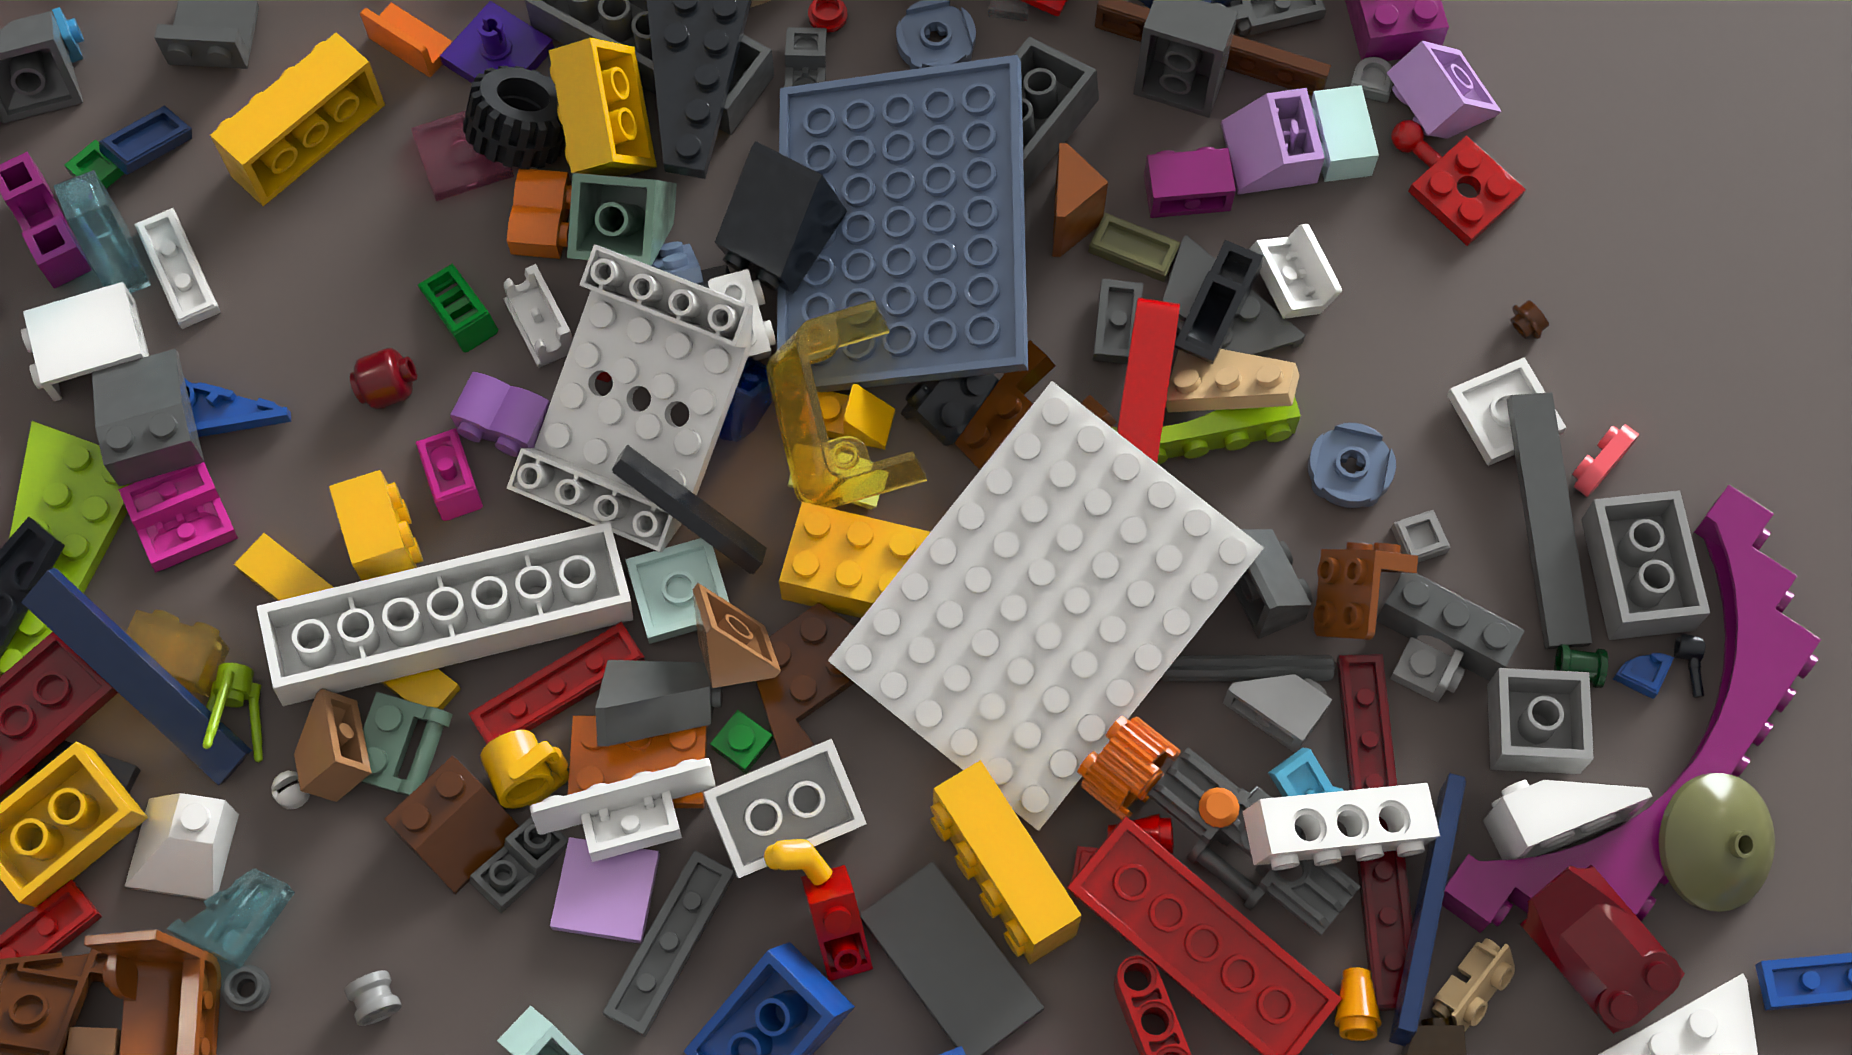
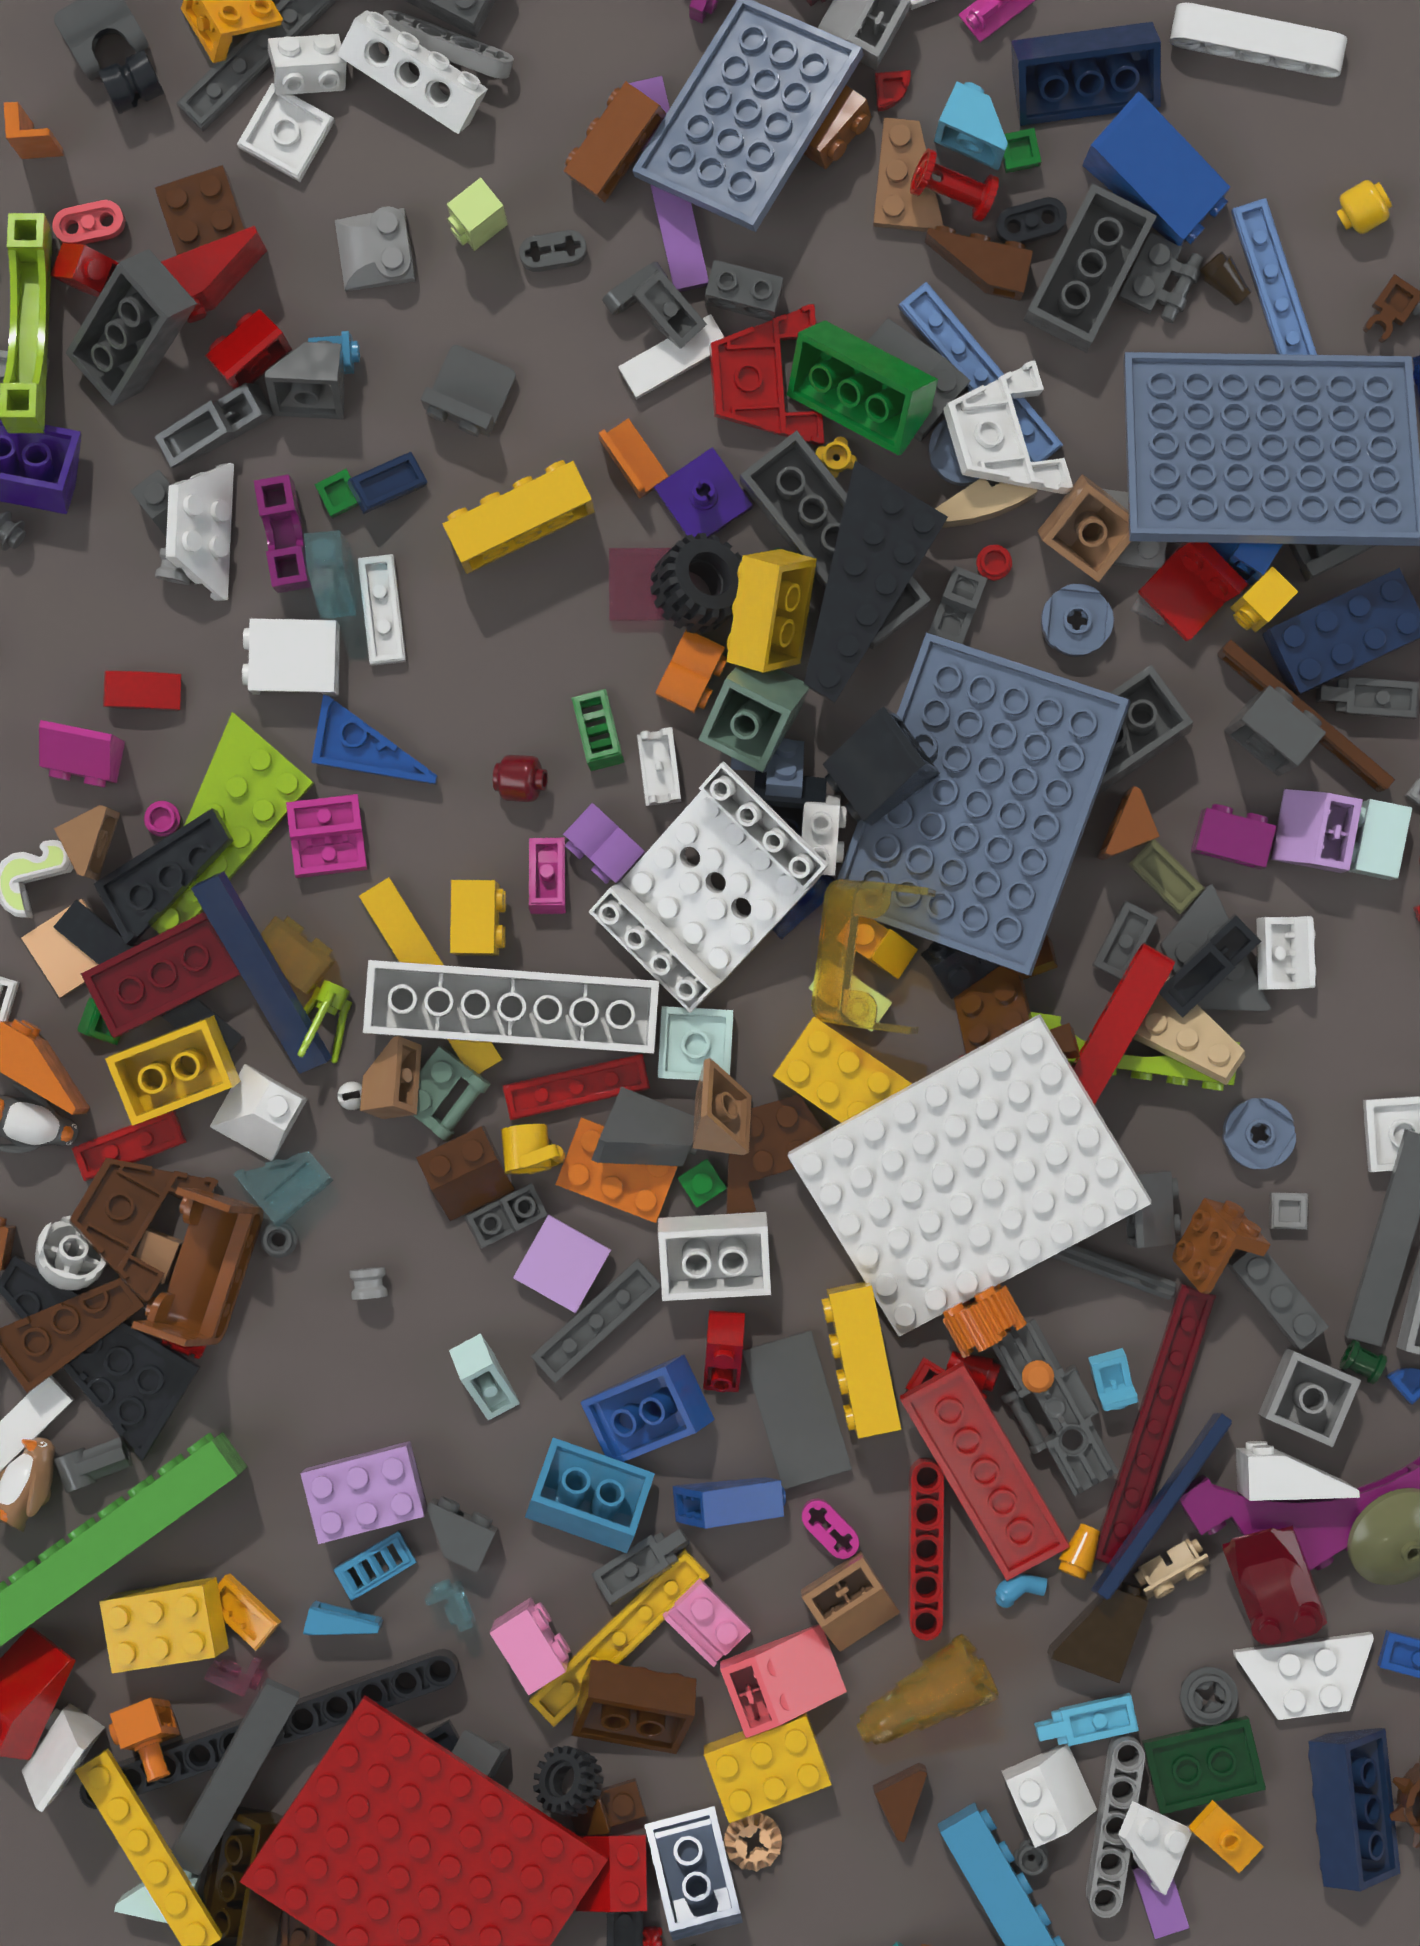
camera: 20 degrees right, 20 degrees up
(145, 418) = (323, 747): dark grey slope -> none
(626, 812) = (597, 1221): white bracket -> none
(689, 510) = (724, 991): black tile -> none
(798, 855) = (710, 1302): yellow arm -> none
(1280, 706) = (1121, 1311): light grey slope -> none
(1403, 807) = (1069, 1412): white brick -> none
(1428, 670) = (1246, 1320): light grey bracket -> none

